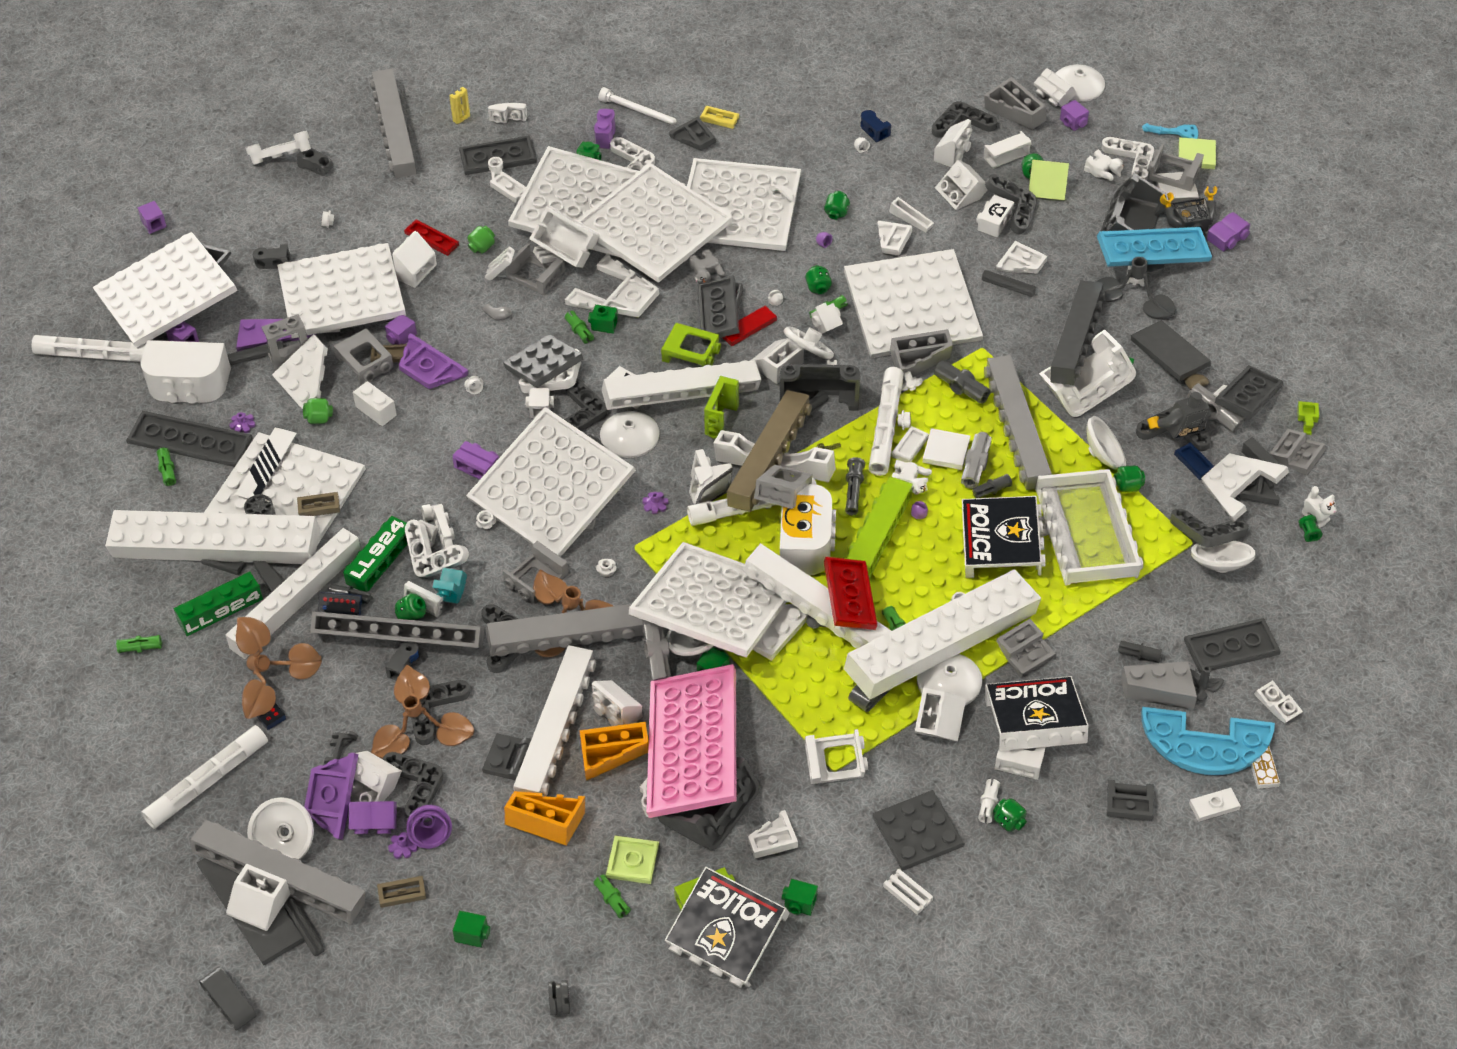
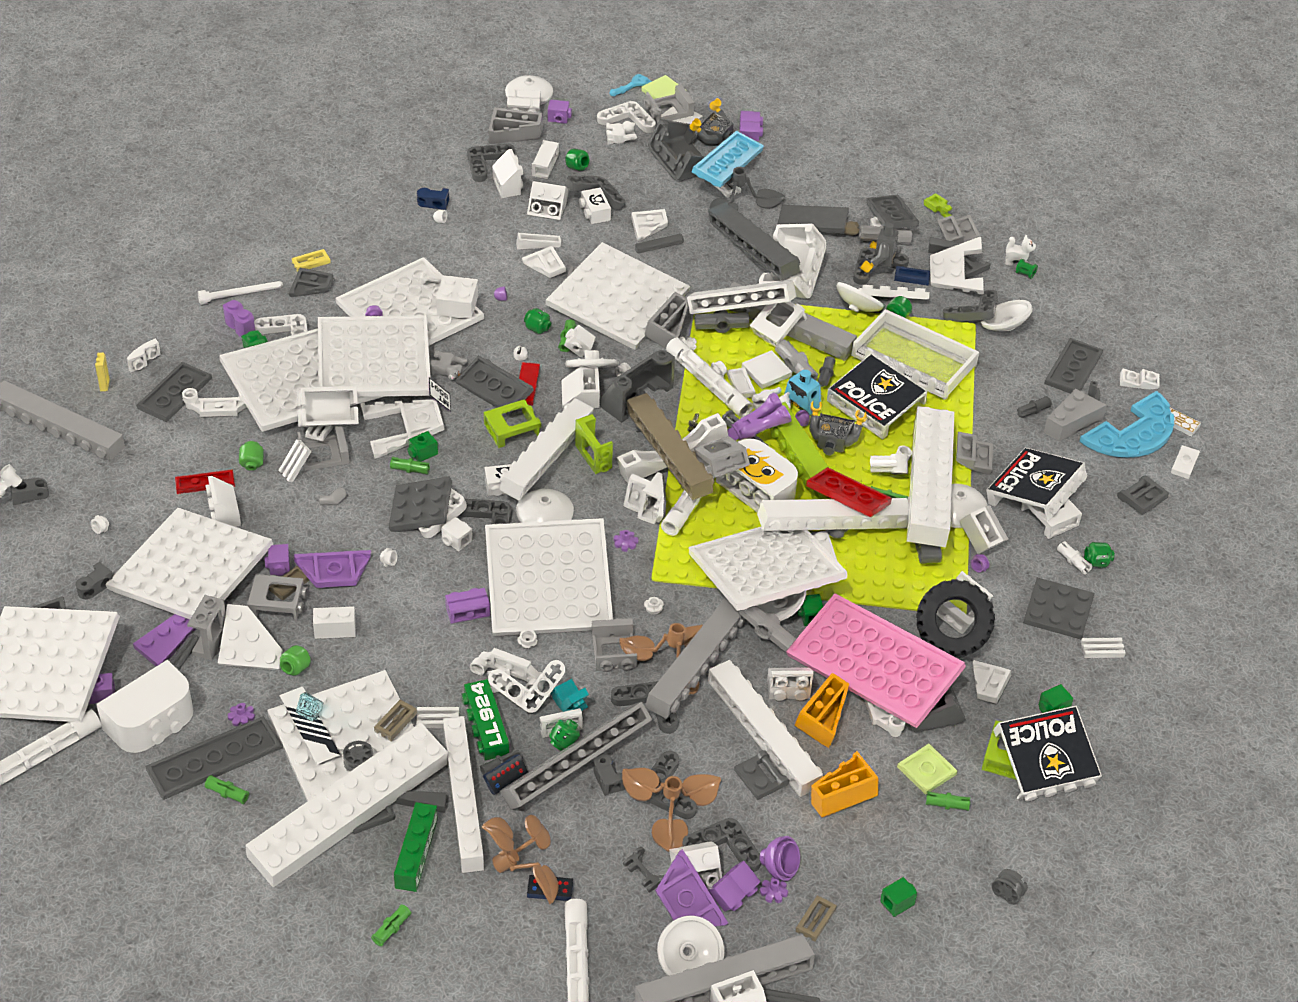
camera: 50 degrees left, 5 degrees down
(276, 449) = (309, 706): none -> clear light blue tile
(346, 517) = (433, 716): none -> white tile
(666, 286) = (439, 394): none -> sticker
(700, 187) = (374, 310): none -> medium lavender plate
(770, 754) = (965, 592): none -> black tyre
(775, 217) = (457, 297): none -> white brick
(837, 205) = (481, 265): green head -> none
(877, 483) = (768, 415): none -> medium lavender piece
(902, 740) = (979, 563): none -> medium lavender plate
(924, 539) = (834, 432): none -> dark grey torso
(929, 596) = (895, 464): none -> white piece
(941, 482) = (803, 391): none -> medium azure torso
(983, 411) = (771, 332): none -> white window
(987, 370) = (741, 296): none -> white brick
(1048, 179) = (601, 160): yellowish green tile -> none
(1155, 466) = (885, 291): none -> white plate

